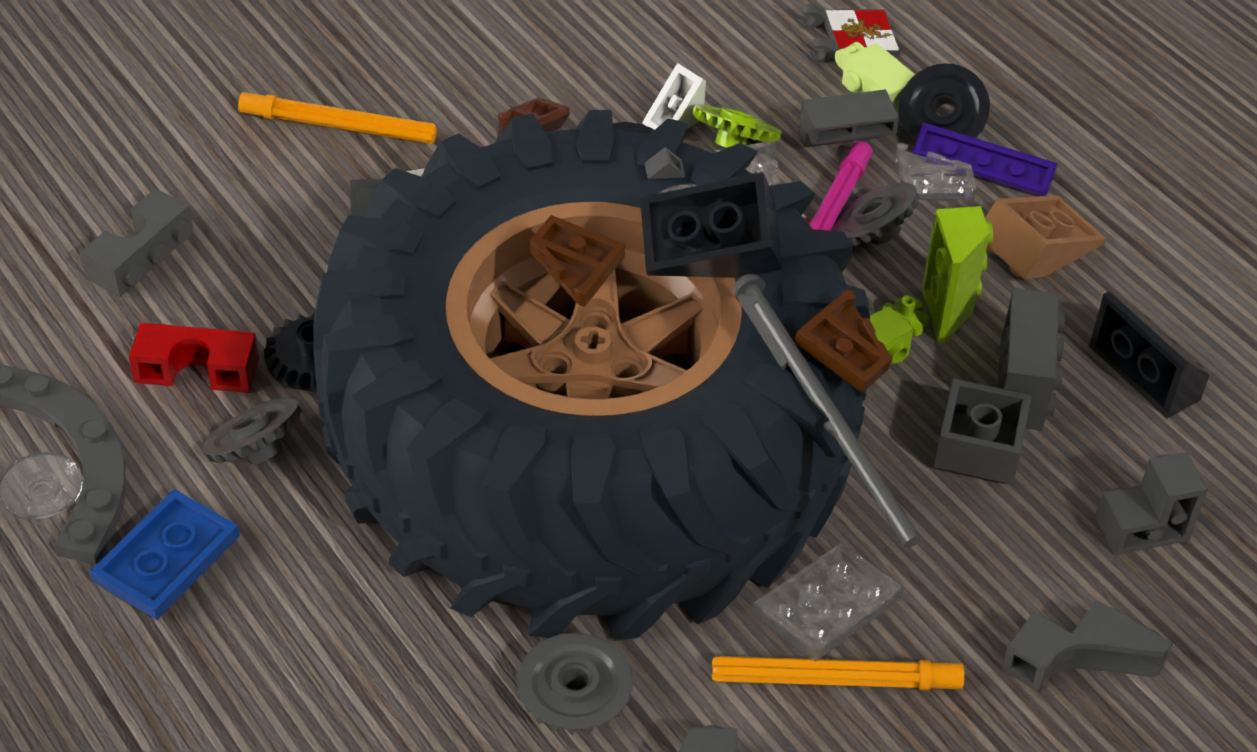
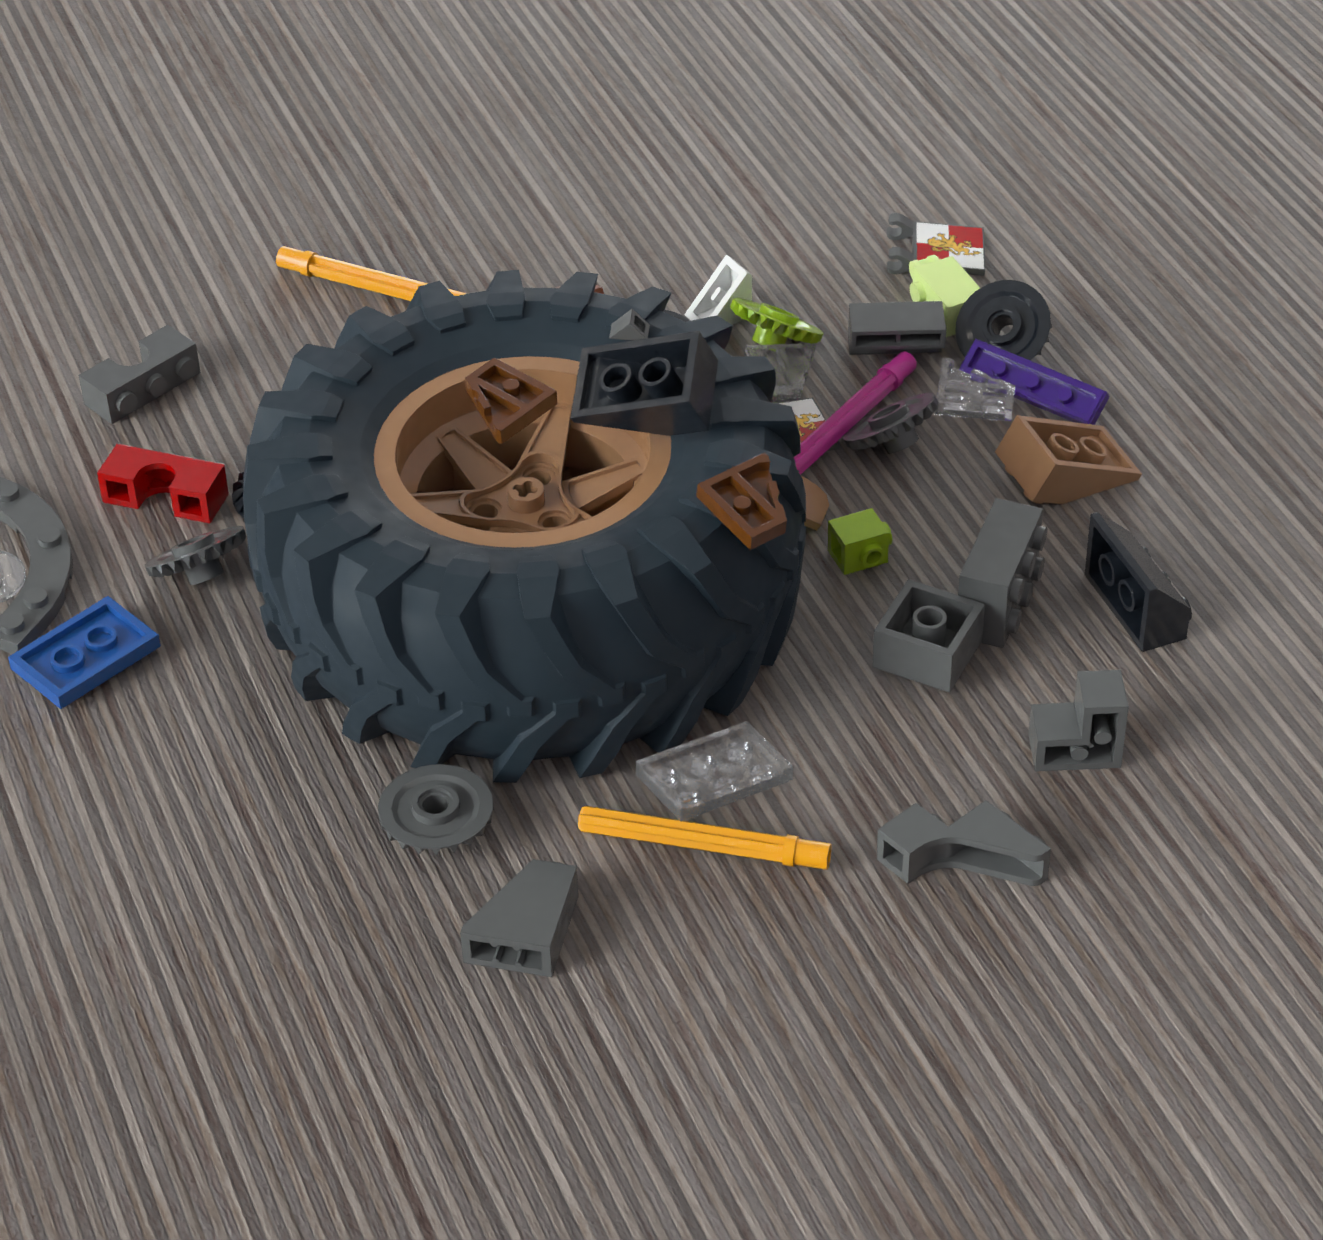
camera: 15 degrees right, 5 degrees down
(749, 294) = (667, 448): dark grey bar -> none
(911, 310) = (901, 522): lime plant -> none
(955, 267) = (951, 477): lime slope -> none

